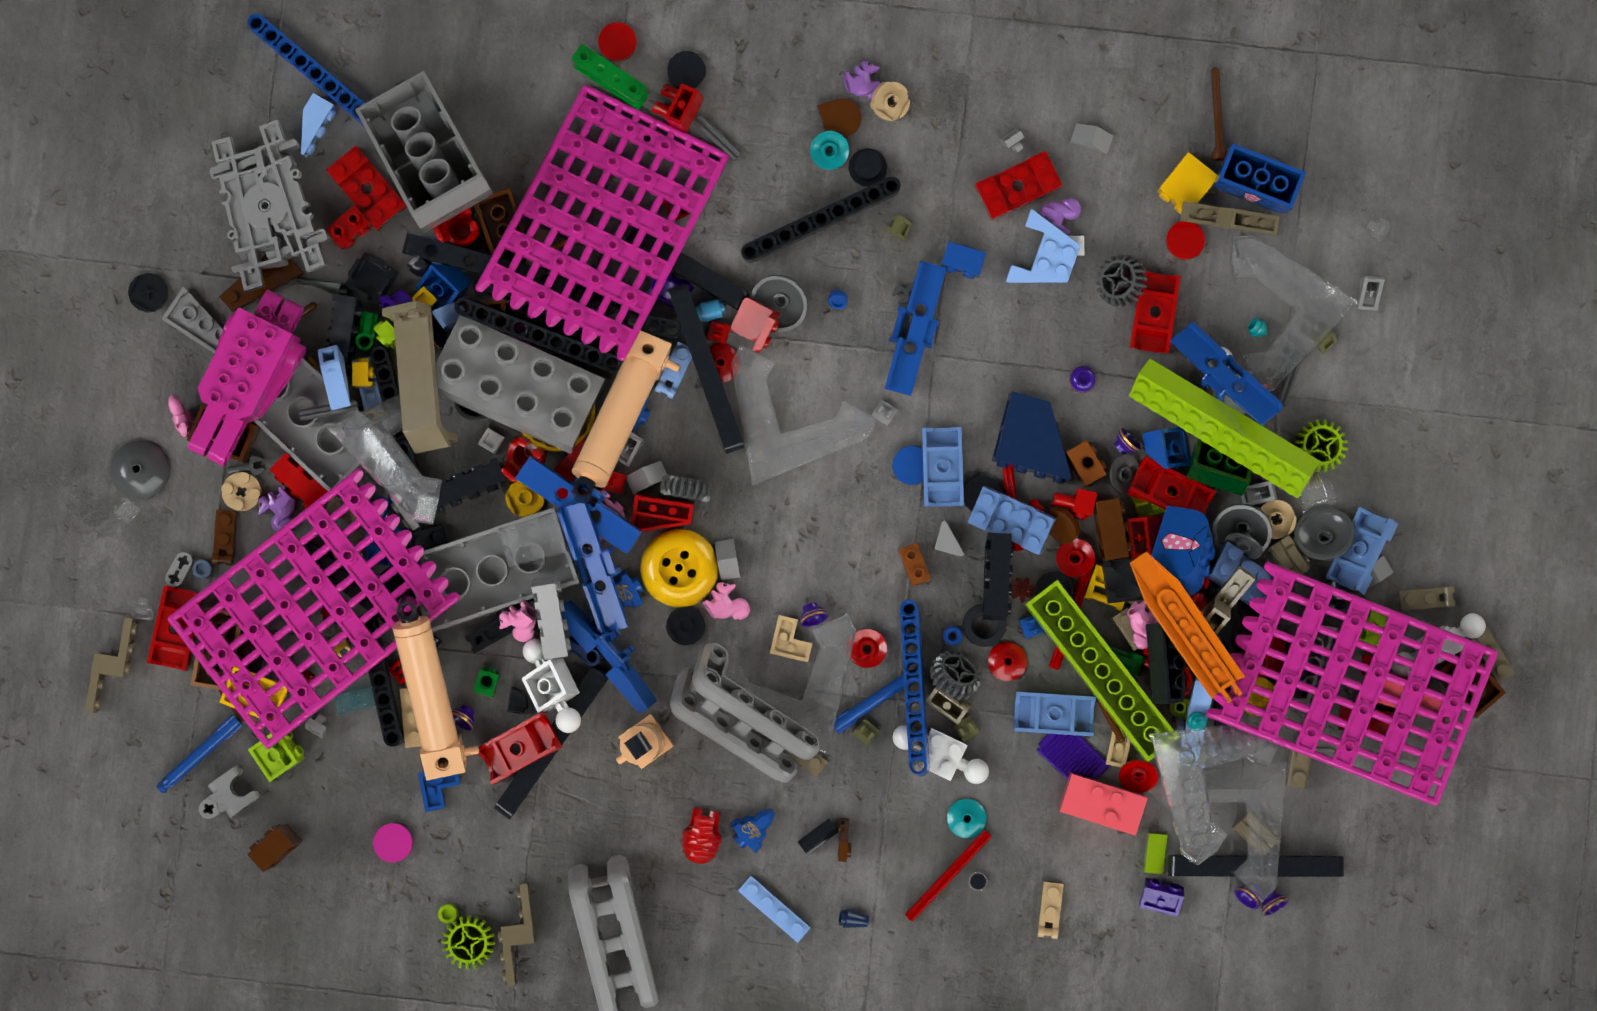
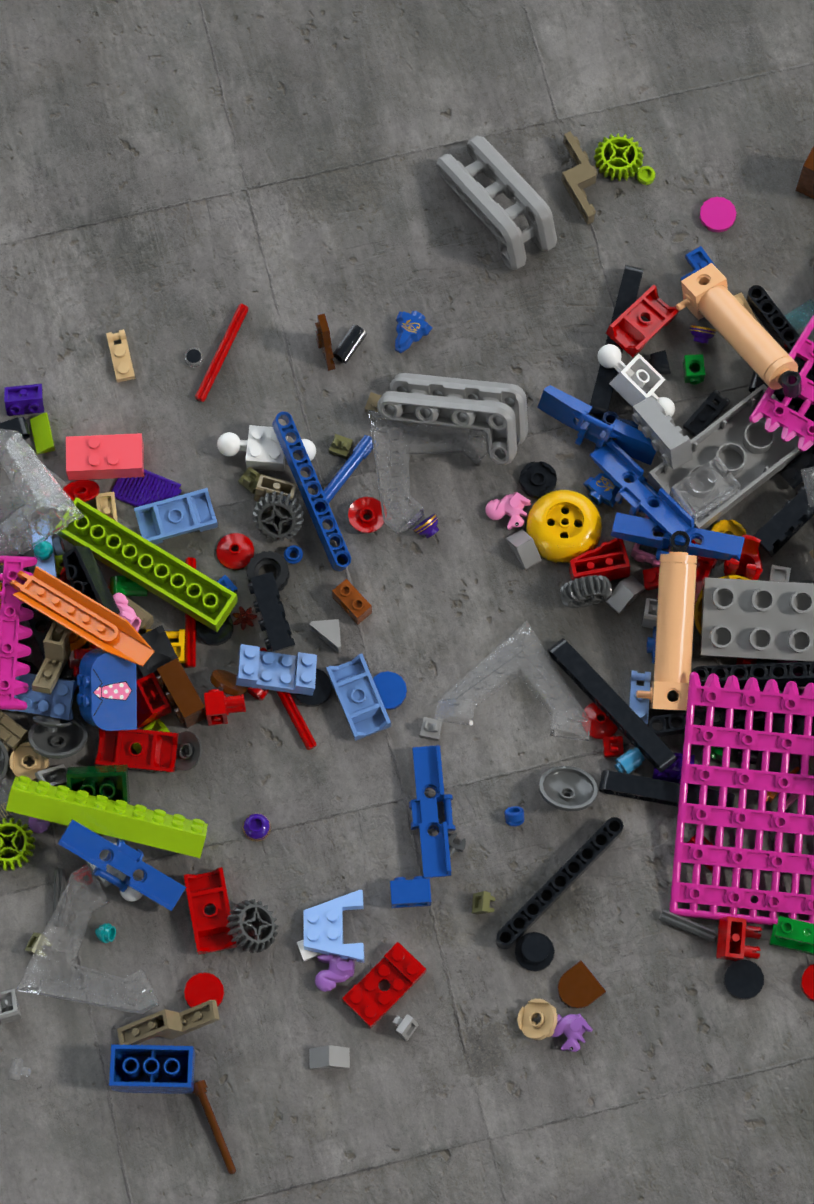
camera: 160 degrees right, 15 degrees down
(522, 620) = (689, 424): bright pink animal -> none
(643, 742) = (535, 358): light nougat piece -> none
(701, 836) = (456, 302): red hair -> none
(755, 323) = (581, 764): bracket -> none
(774, 909) = (365, 274): light blue plate -> none
(784, 641) = (442, 493): tan plate -> none
(831, 160) = (576, 943): teal dish -> none
(852, 919) = (292, 288): dark blue cone -> none
(959, 810) = (223, 414): teal dish -> none
(1031, 439) = (286, 749): dark blue slope -> none
(1066, 554) = (211, 653): red dish -> none
(1086, 475) = (221, 738): dark orange brick -> none
(1126, 442) = (194, 781): dark purple piece -> none
(1167, 447) = (154, 788): blue slope -> none
(1187, 182) = (221, 1046): yellow brick -> none

